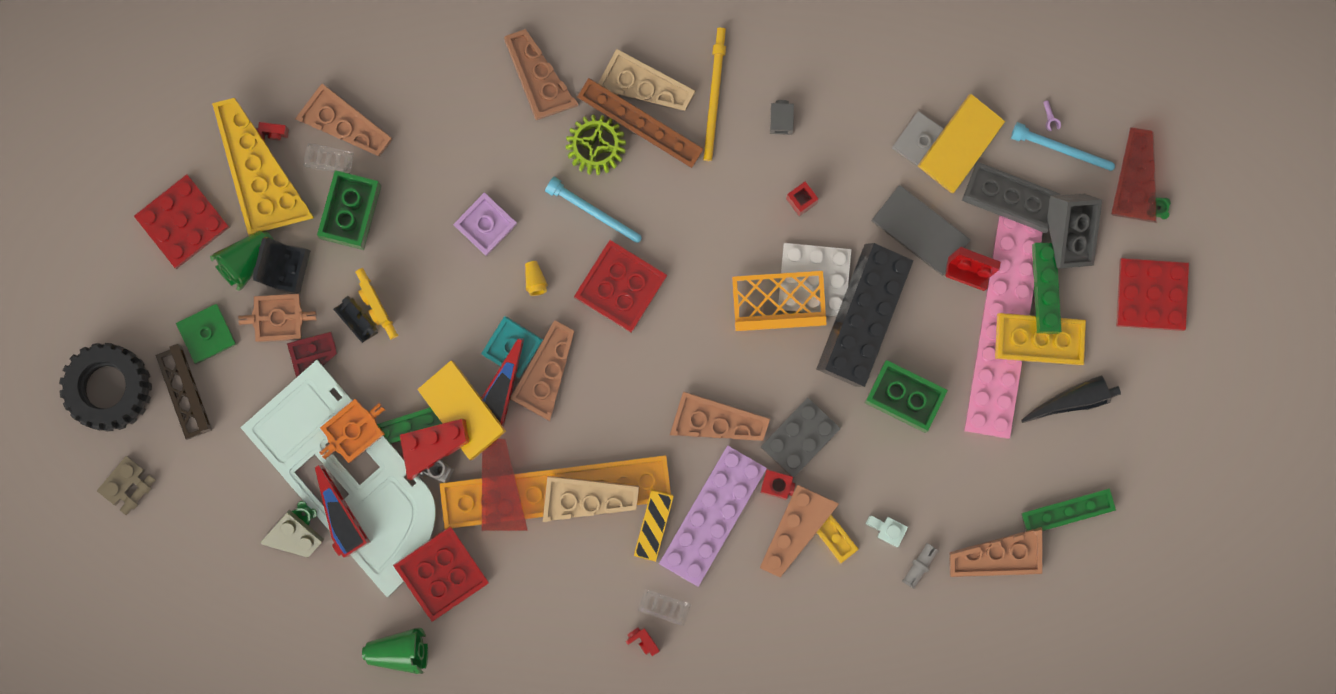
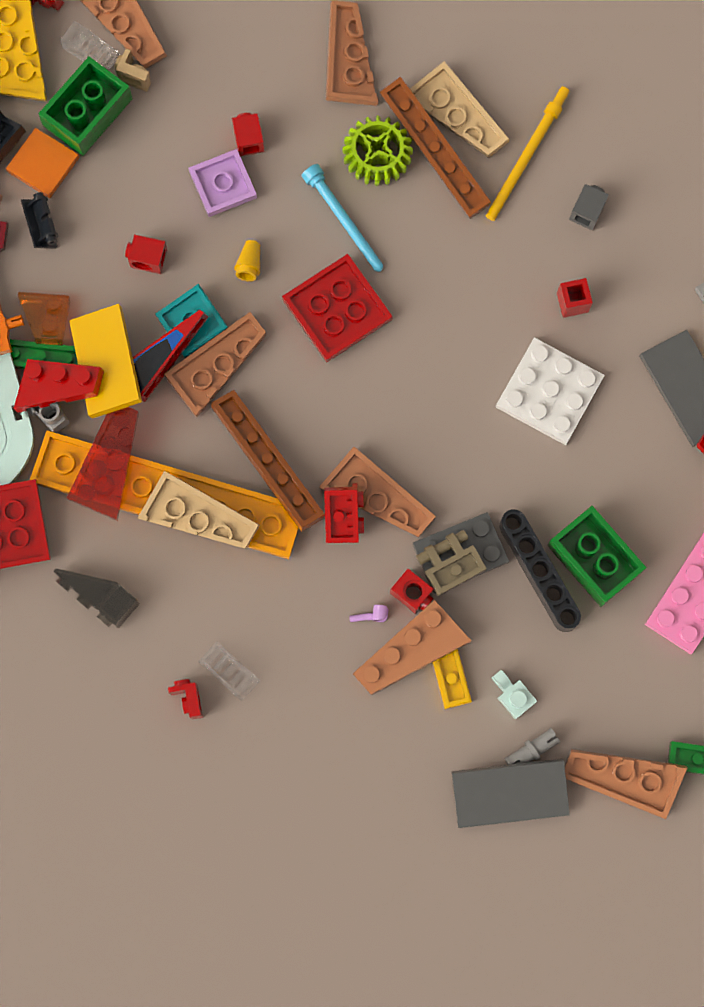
camera: 20 degrees right, 5 degrees down
(334, 269) = (42, 163): none -> orange tile
(370, 297) = (66, 217): yellow plate -> none
(375, 166) = (133, 75): none -> tan bracket
(395, 393) = (46, 316): none -> clear orange wing
(451, 308) = (146, 254): none -> red brick
(487, 175) = (248, 134): none -> red brick
(544, 592) = (104, 595): none -> clear smoke slope
(621, 432) = (267, 460): none -> dark orange plate
(653, 525) = (256, 575): tile -> none
(698, 450) = (342, 515): none -> red bracket
(712, 516) = (326, 595): lavender plate -> none
(759, 513) = (379, 614): none -> lavender hand
(782, 320) = (493, 417): light orange fence -> none
(802, 456) = (454, 570): none -> dark tan plate
(864, 315) = (589, 449): black brick -> none
(878, 427) = (539, 557): none -> black beam
(918, 605) = (510, 793): none -> dark grey tile

